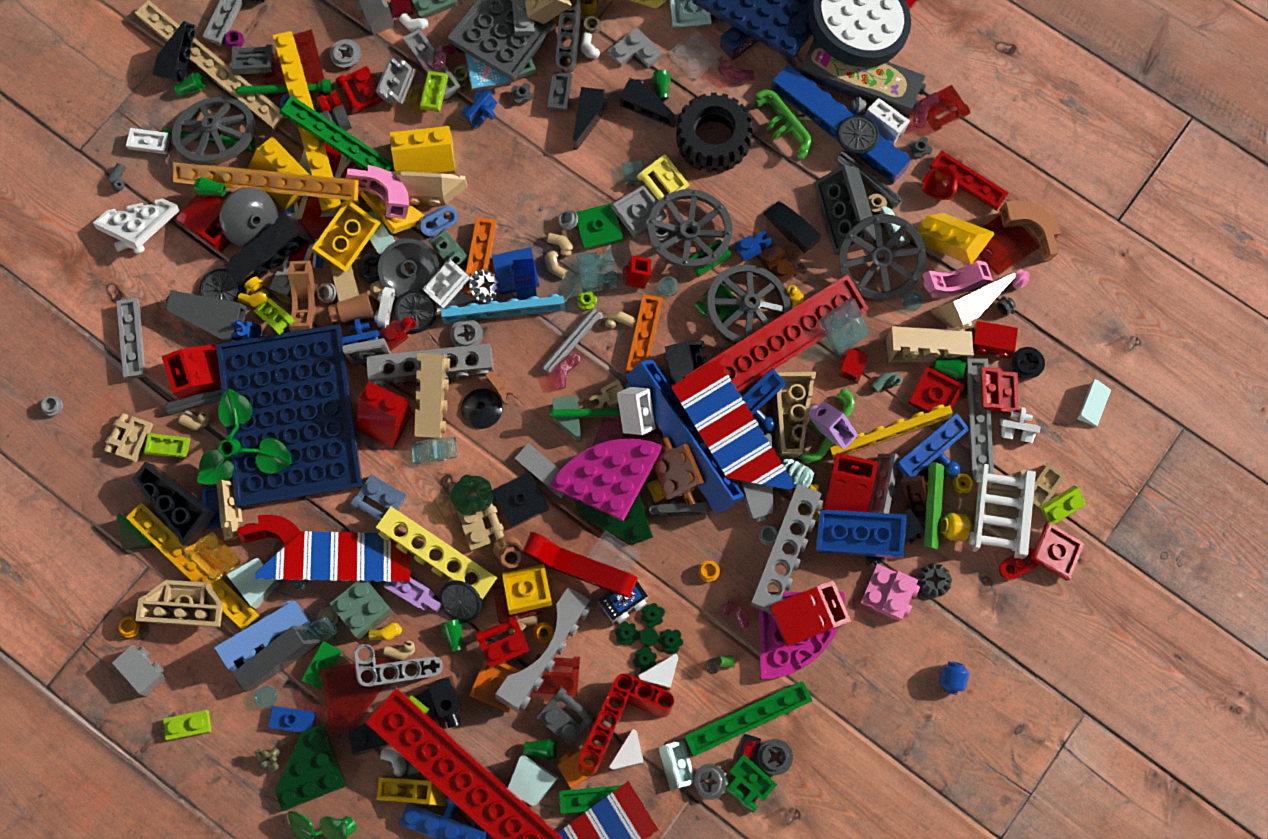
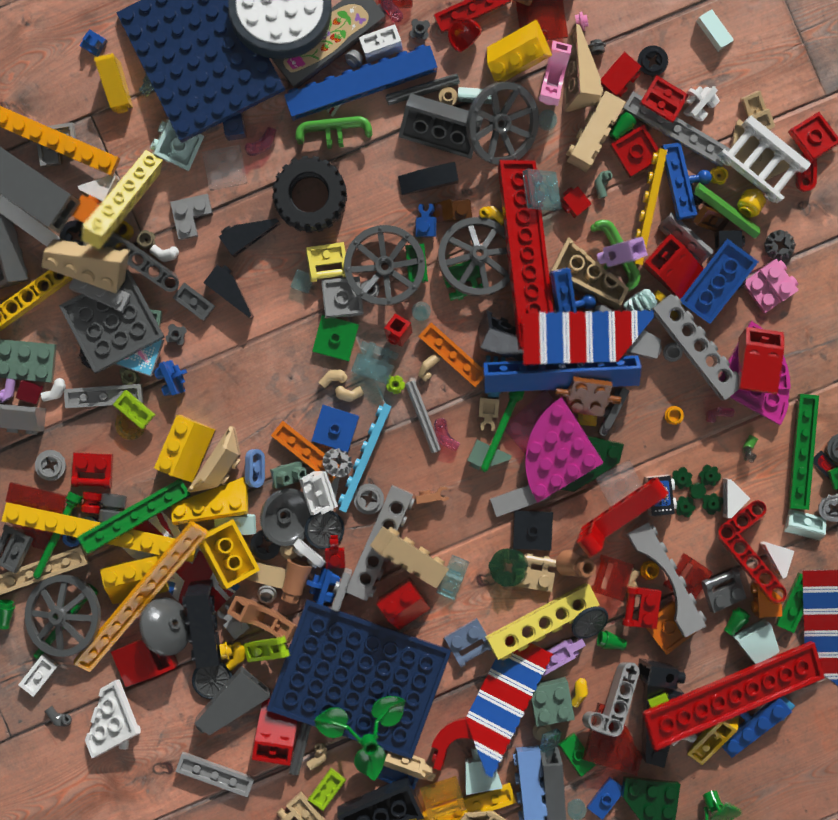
camera: 60 degrees left, 15 degrees up
(207, 187) = (116, 648): green cone -> none
(246, 330) = (267, 677): blue plate -> none
(384, 185) = (204, 497): bright pink arch -> none
(395, 81) = (104, 436): light grey hinge -> none
(401, 653) = (602, 688): tan arm -> none
(440, 54) = (103, 386): clear pink arm -> none
(483, 417) = (428, 515): black dish -> none
(524, 278) = (349, 425): clear blue slope -> none
(526, 589) = (613, 567): yellow plate -> none
(568, 219) = (316, 360): light grey plate -> none
(636, 410) = (520, 400): white brick -> none
(661, 83) = (237, 211): green cone -> none
(858, 134) = (383, 75): dark grey wheel -> none
(1062, 505) = (781, 109): lime plate -> none

